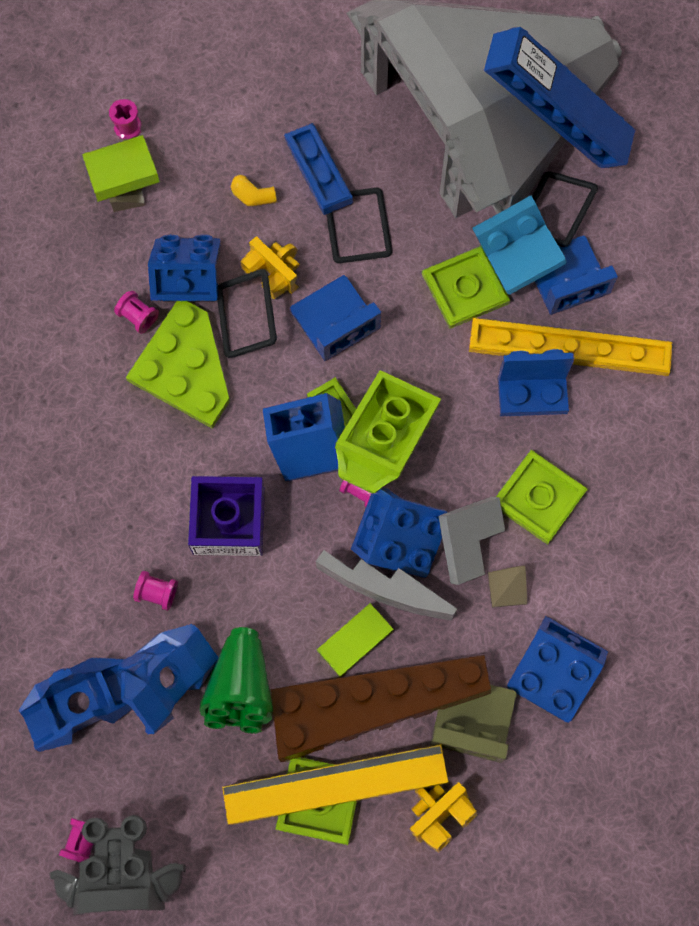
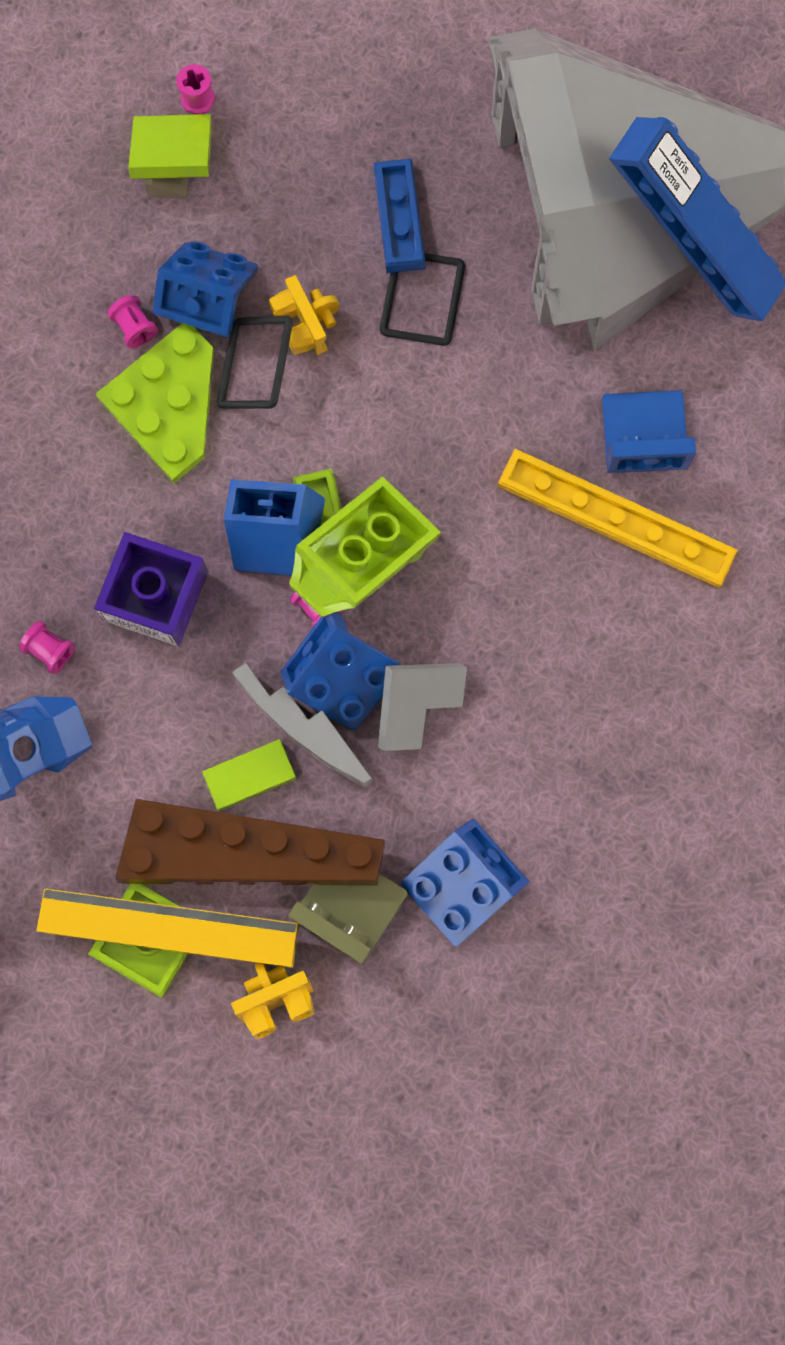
camera: 20 degrees right, 5 degrees up
(238, 685) = (100, 782): green cone -> none
(250, 194) = (309, 222): yellow arm -> none
(336, 317) = (356, 398): blue bracket -> none
(465, 287) = (520, 409): lime tile -> none
(508, 587) = (442, 772): dark tan slope -> none
(519, 245) = (597, 379): dark azure bracket -> none
(534, 383) = (555, 548): blue bracket -> none
(540, 496) = (516, 680): lime tile -> none
(594, 188) = (713, 337): black piece -> none

